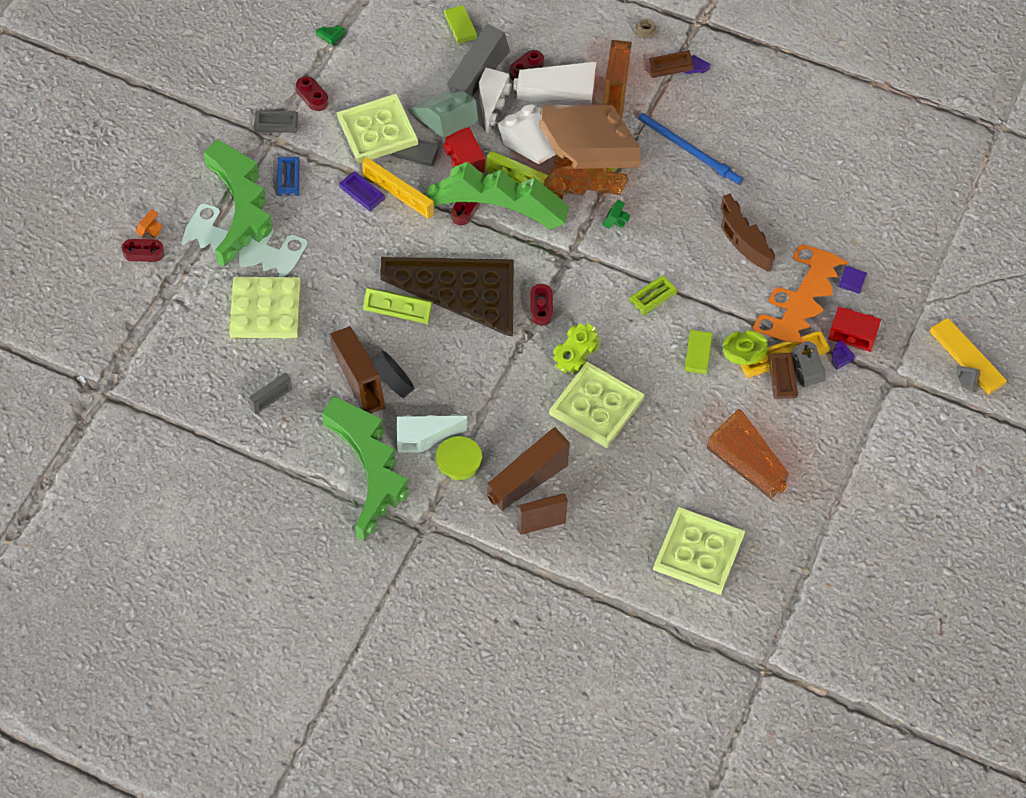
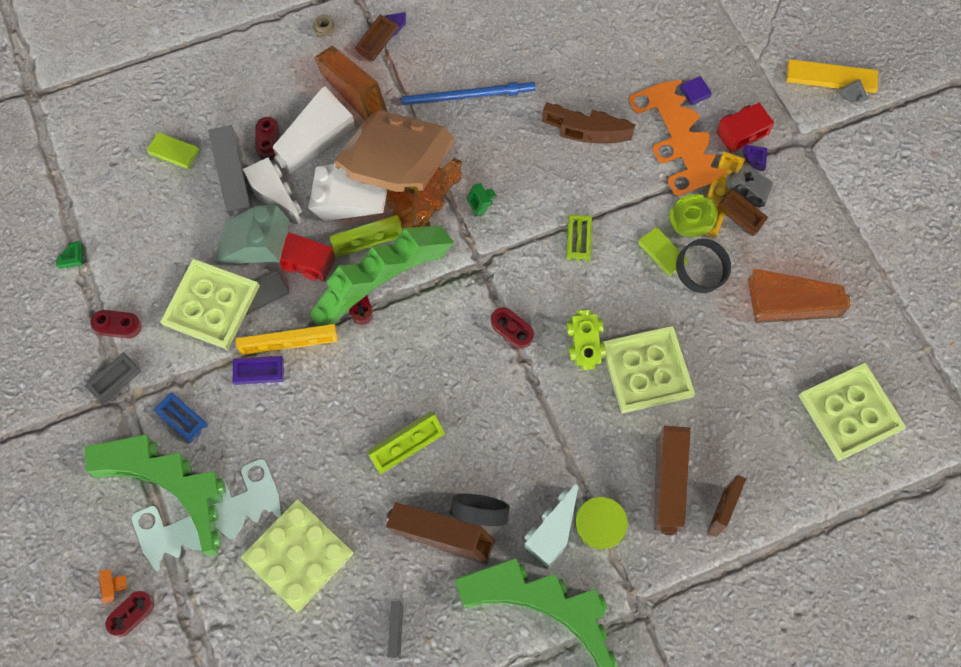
camera: 45 degrees left, 10 degrees up
(465, 286) = (435, 372): dark brown wing -> none
(712, 358) = (723, 256): none -> black tyre

